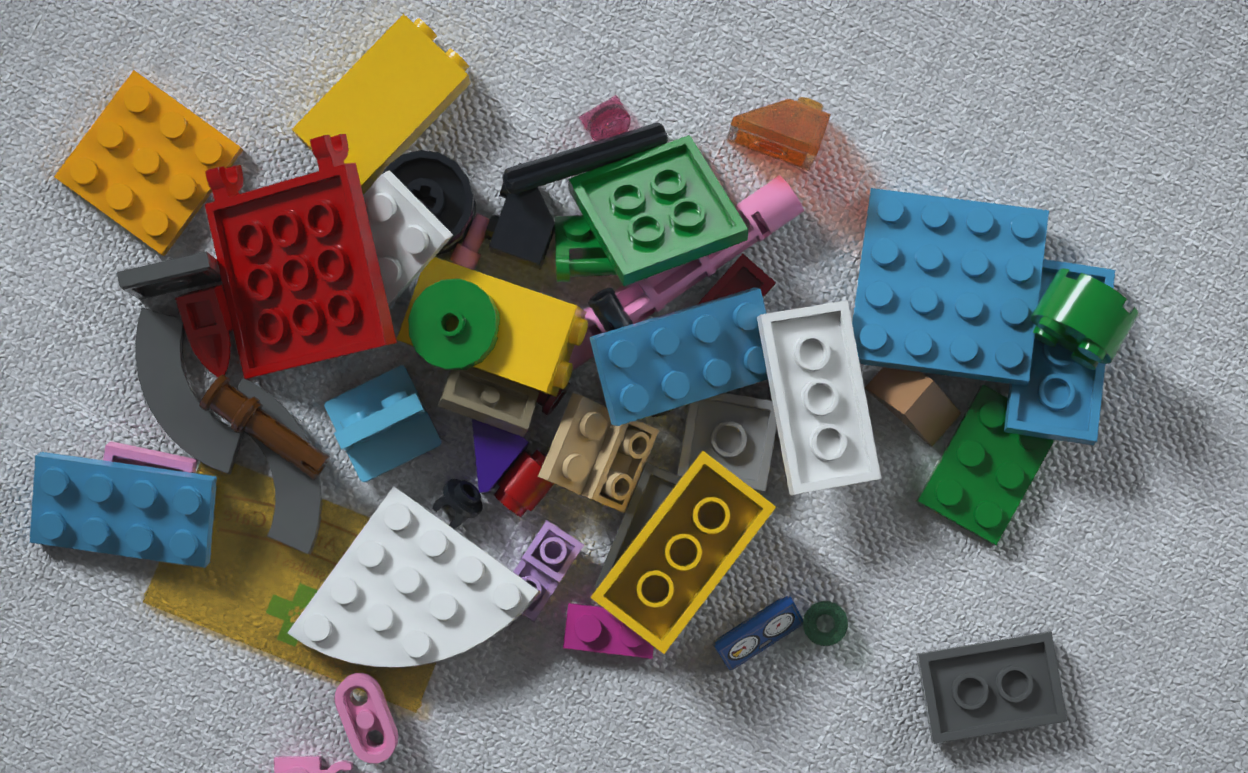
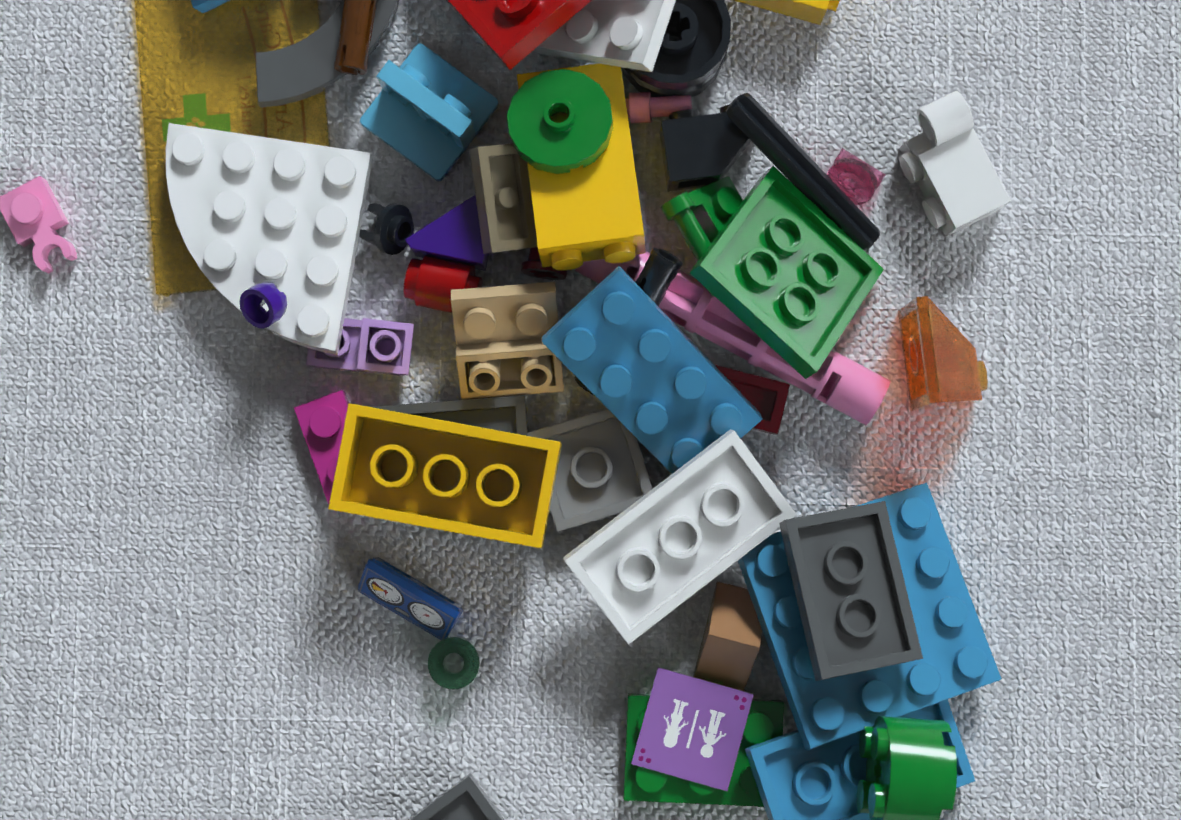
camera: 70 degrees right, 0 degrees up
(365, 716) = (122, 240): bright pink plate -> none
(481, 636) = (253, 300): none -> dark purple hinge
(638, 42) = (951, 166): none -> white hinge
(925, 289) = (850, 590): none -> dark grey plate
(968, 464) = (692, 729): none -> medium lavender sticker

